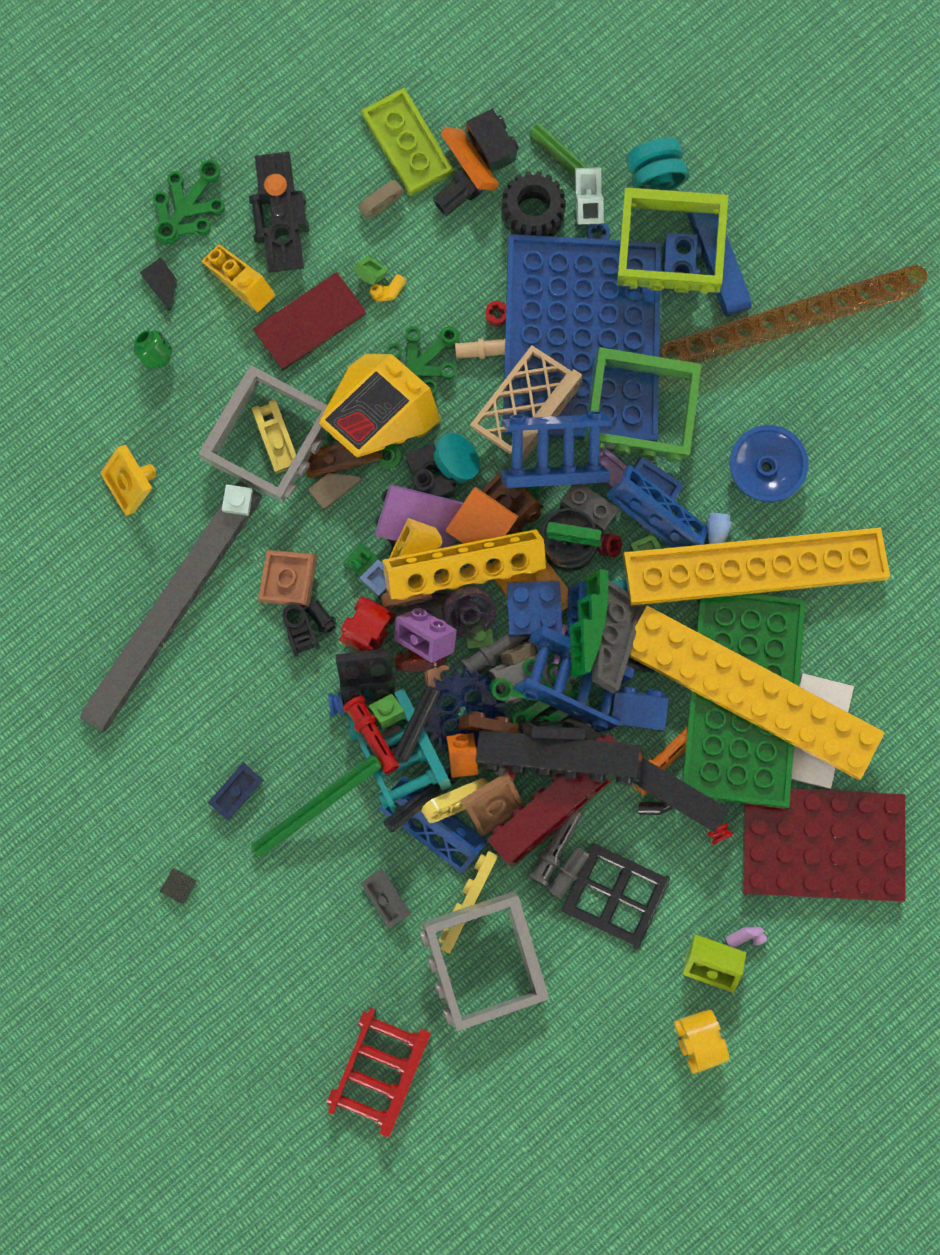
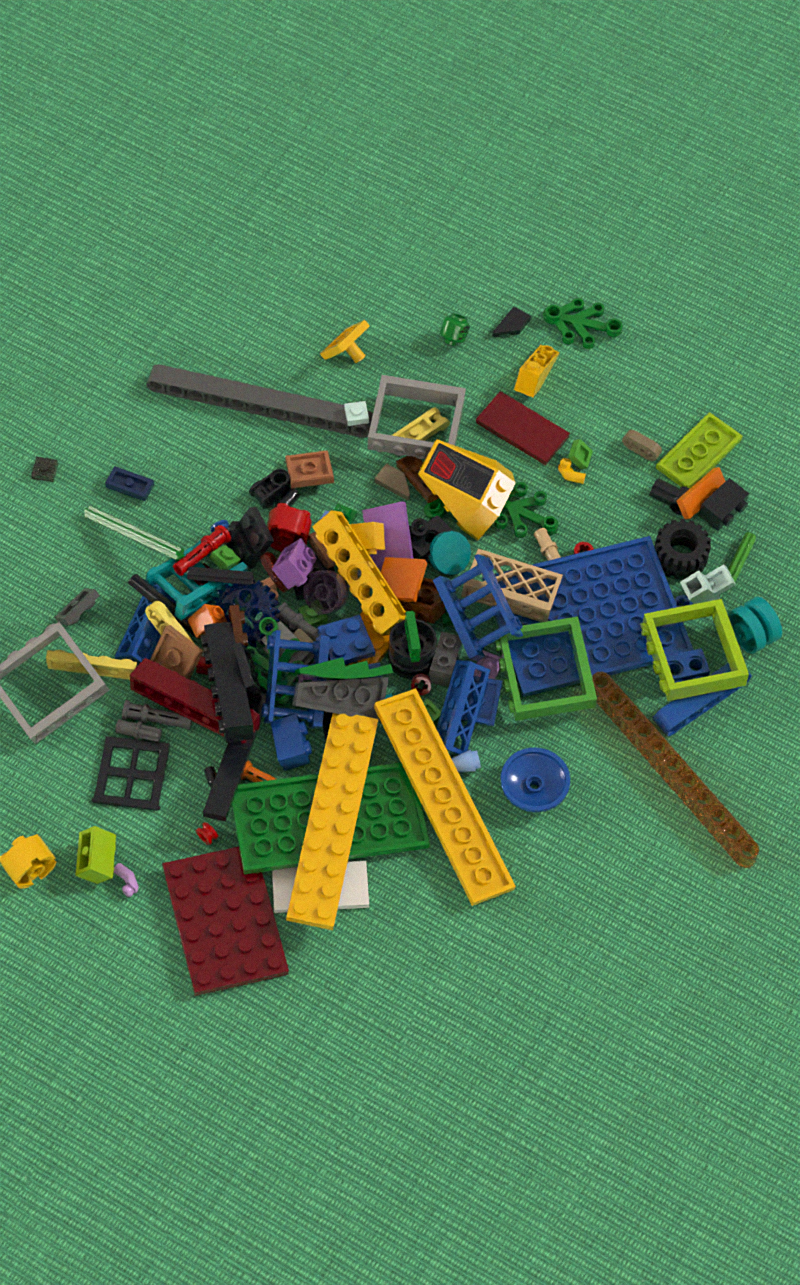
camera: 70 degrees right, 20 degrees down
(287, 212) = (601, 383): black piece -> none

